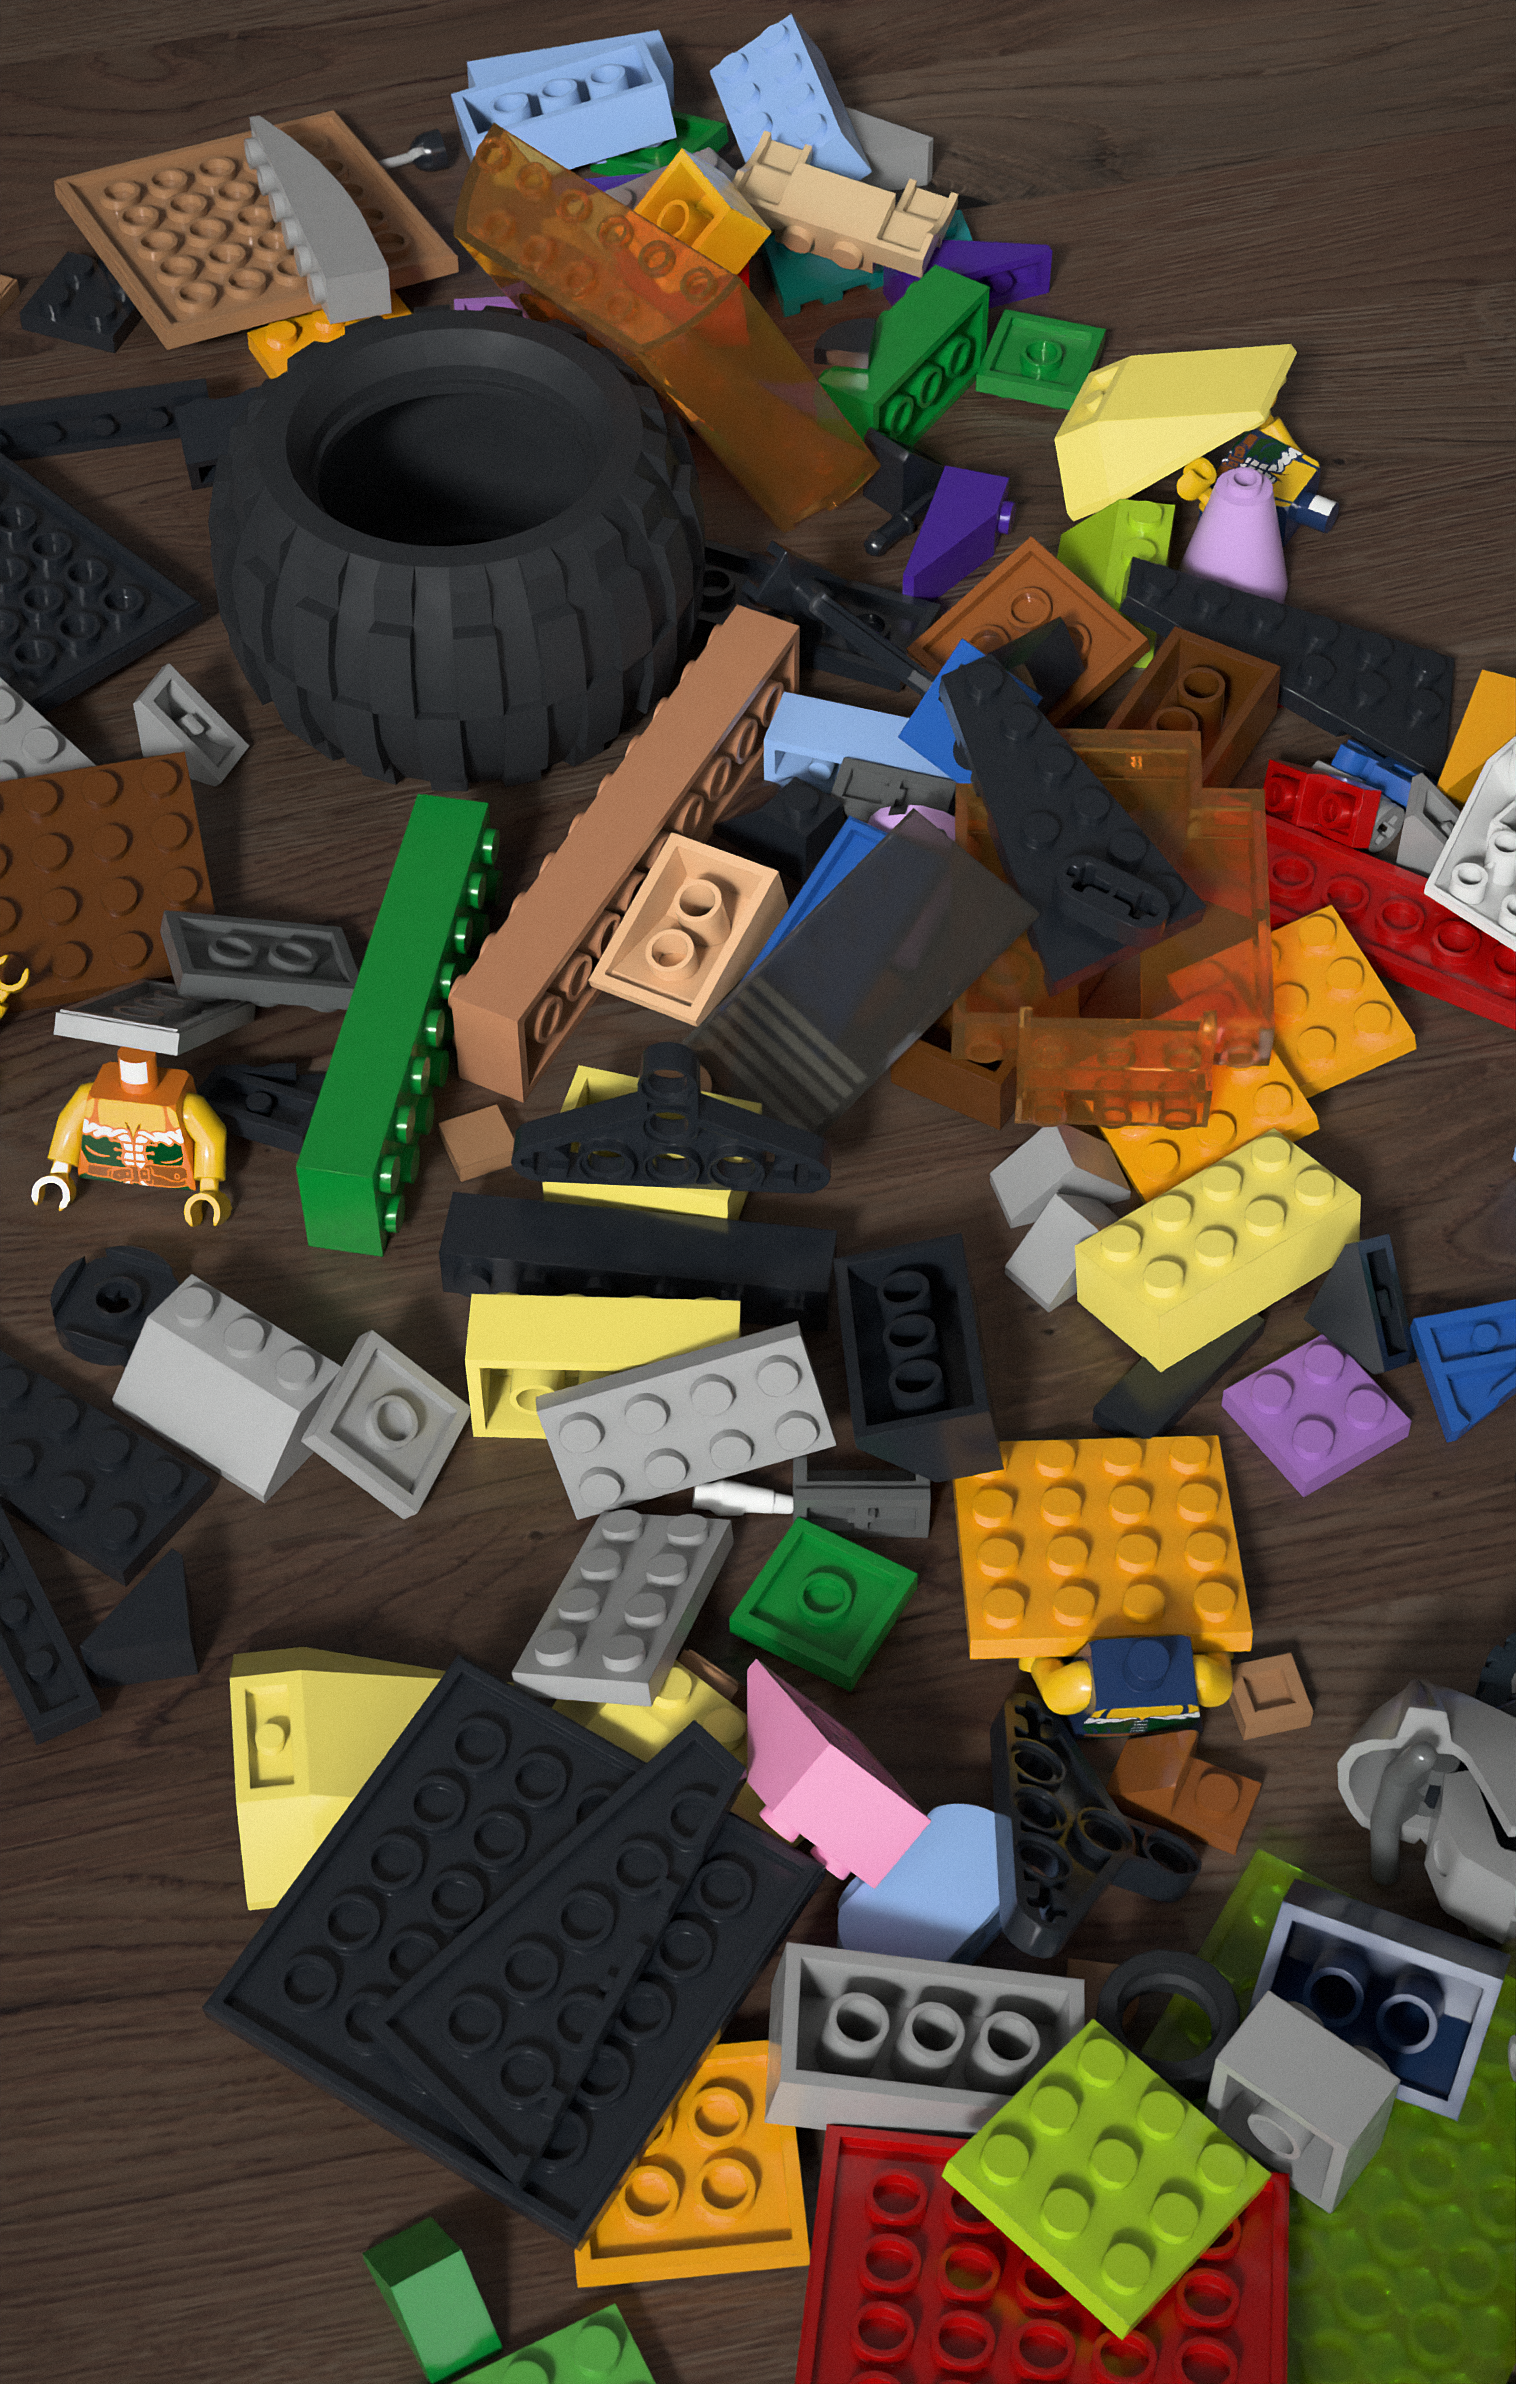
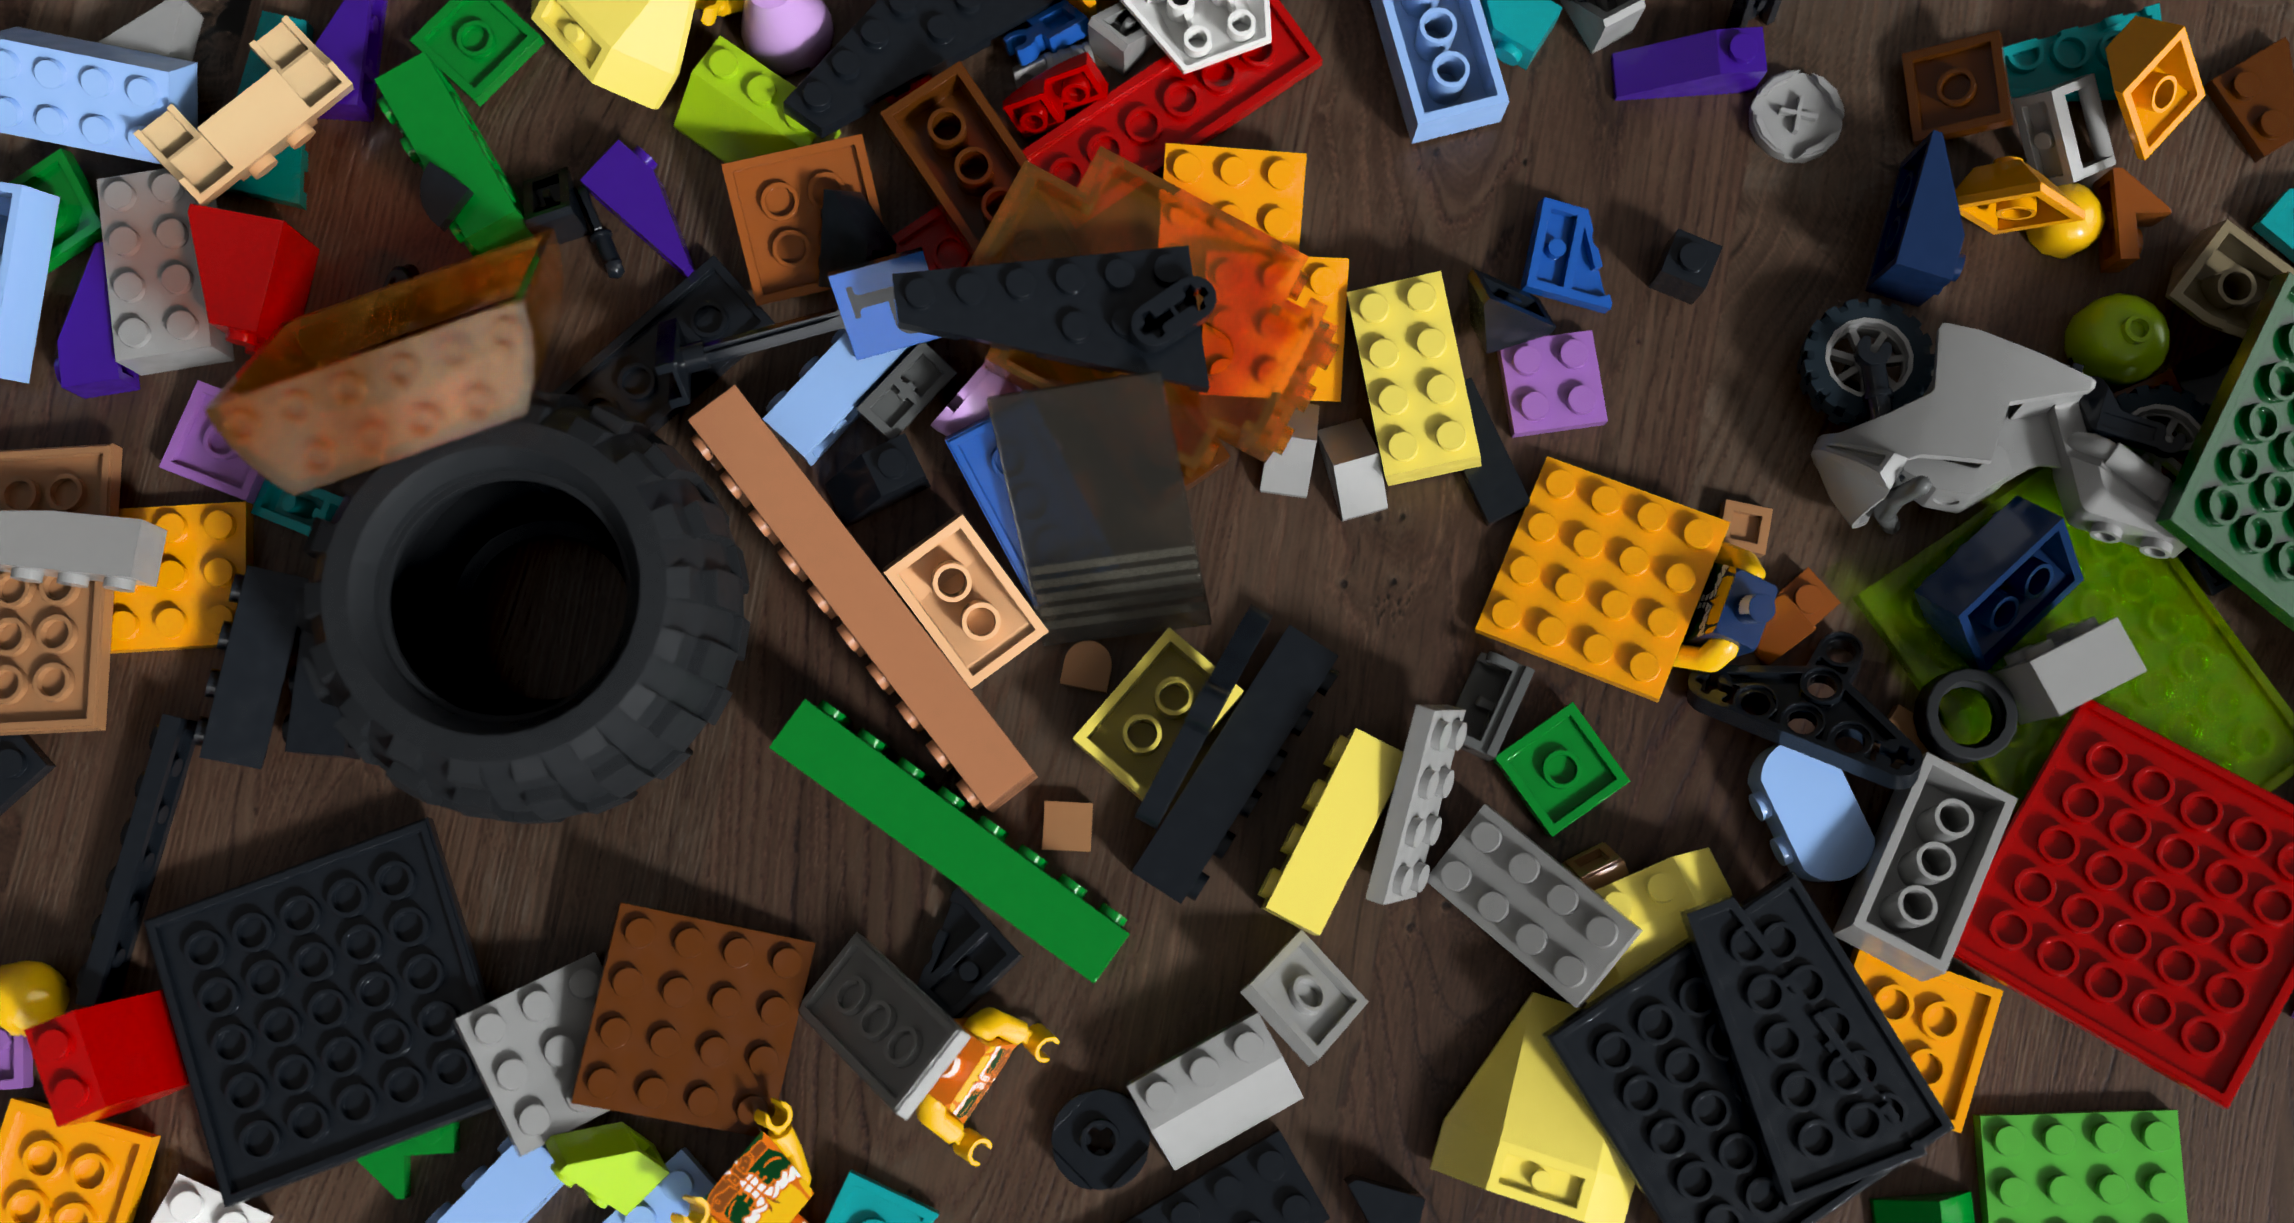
camera: 65 degrees left, 30 degrees up
(178, 719) = (562, 879): light grey slope -> none
(259, 960) = (843, 921): dark grey plate -> none
(704, 212) = (240, 253): yellow slope -> none
(736, 1498) = (1460, 767): white piece -> none
(824, 1783) = (1724, 840): bright pink slope -> none
(918, 1359) = (1424, 626): black slope -> none
(1106, 2177) = (2069, 807): lime plate -> none

